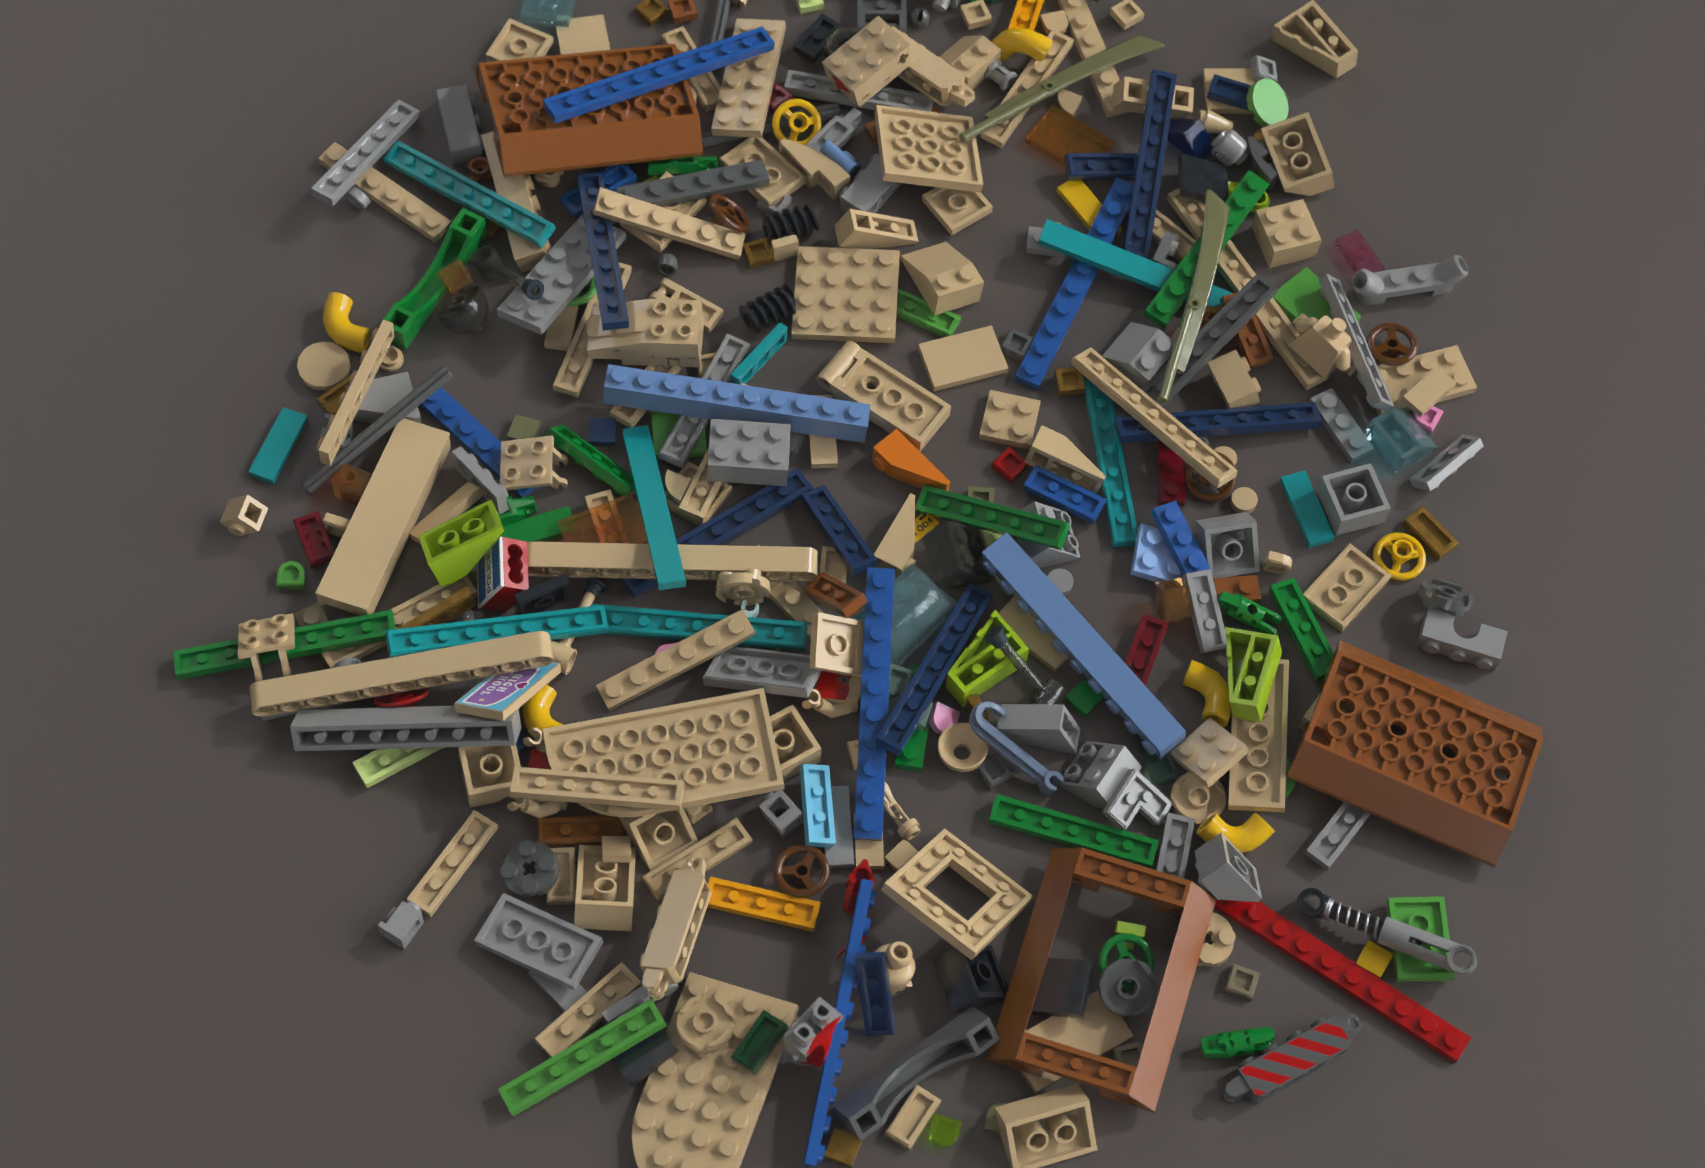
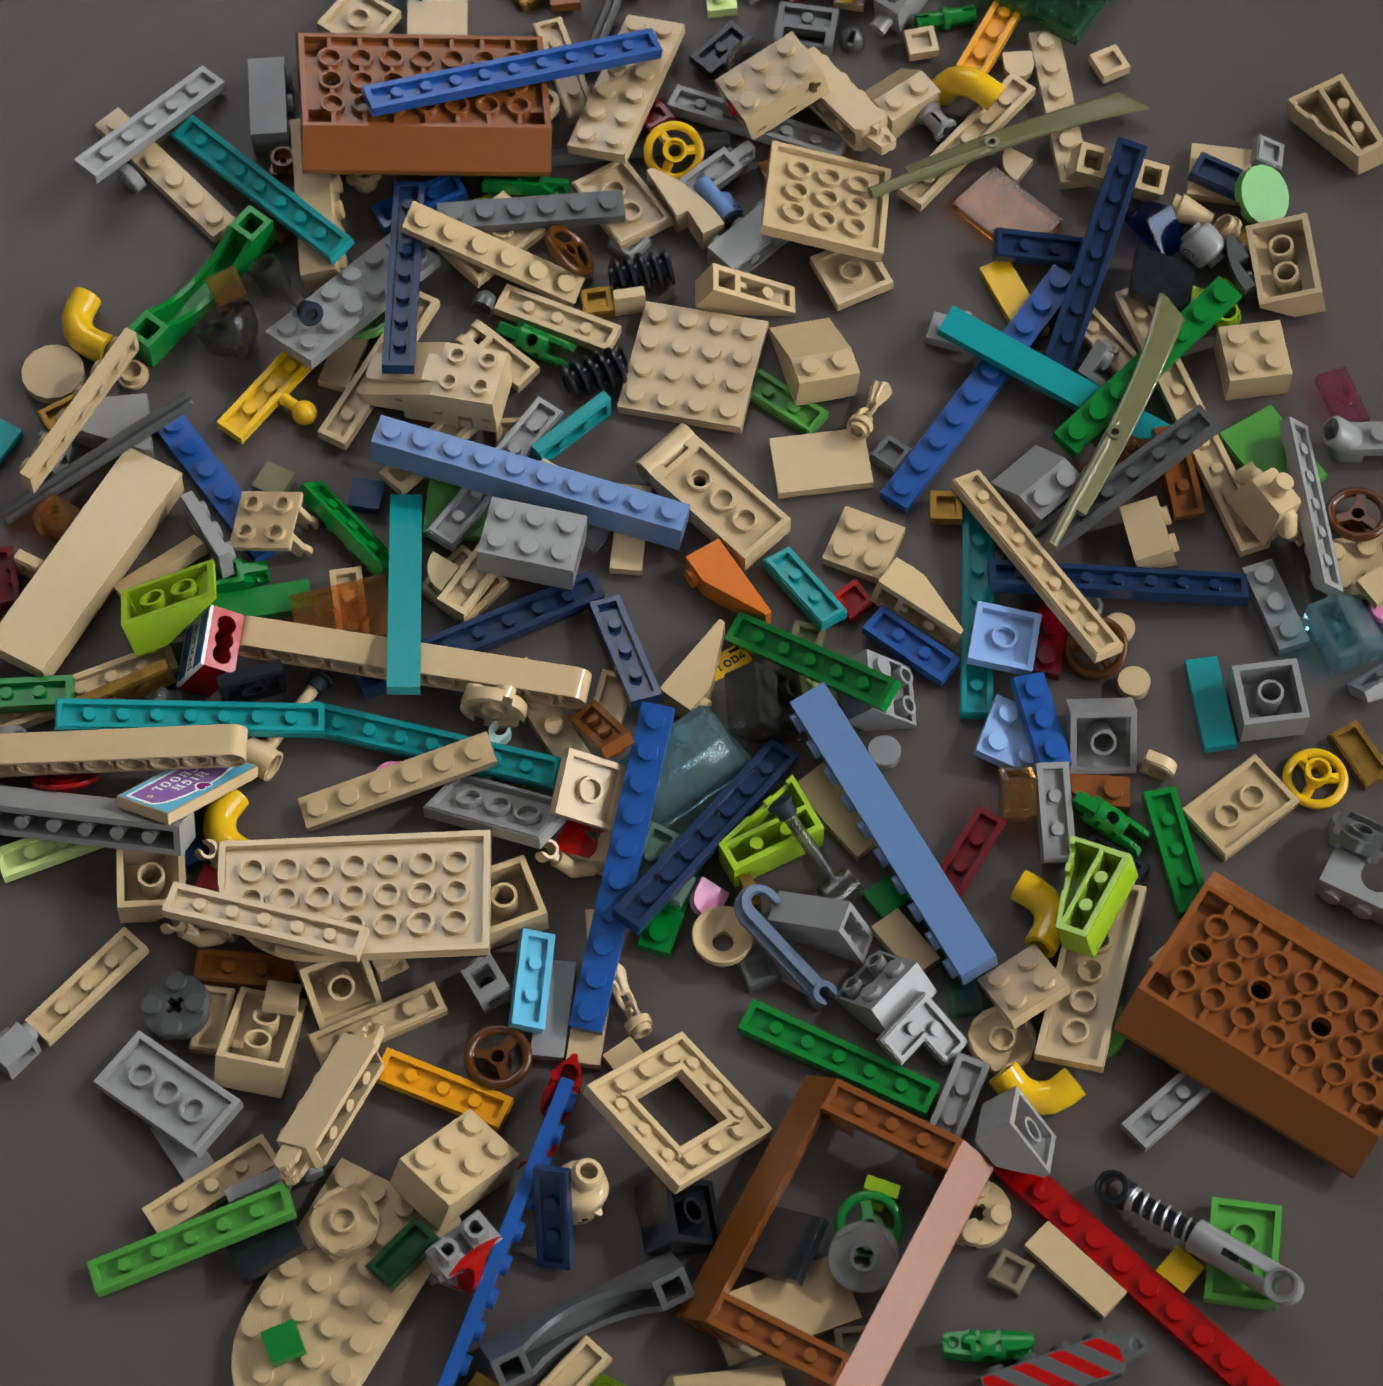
camera: 15 degrees right, 0 degrees up
(504, 360) = (265, 396): none -> yellow plate
(675, 1130) = (283, 1343): none -> green tile
(704, 286) = (524, 336): none -> green hinge
(729, 270) = (557, 319): none -> tan plate
(786, 967) = (454, 1169): none -> tan brick
(971, 460) = (804, 589): none -> teal tile
(990, 323) = (860, 424): none -> tan piece
(1104, 729) = (903, 940): none -> tan tile
(1137, 479) = (1003, 638): none -> light blue plate
(1246, 129) = (1228, 224): none -> tan plate
(1292, 972) = (1075, 1270): none -> tan tile

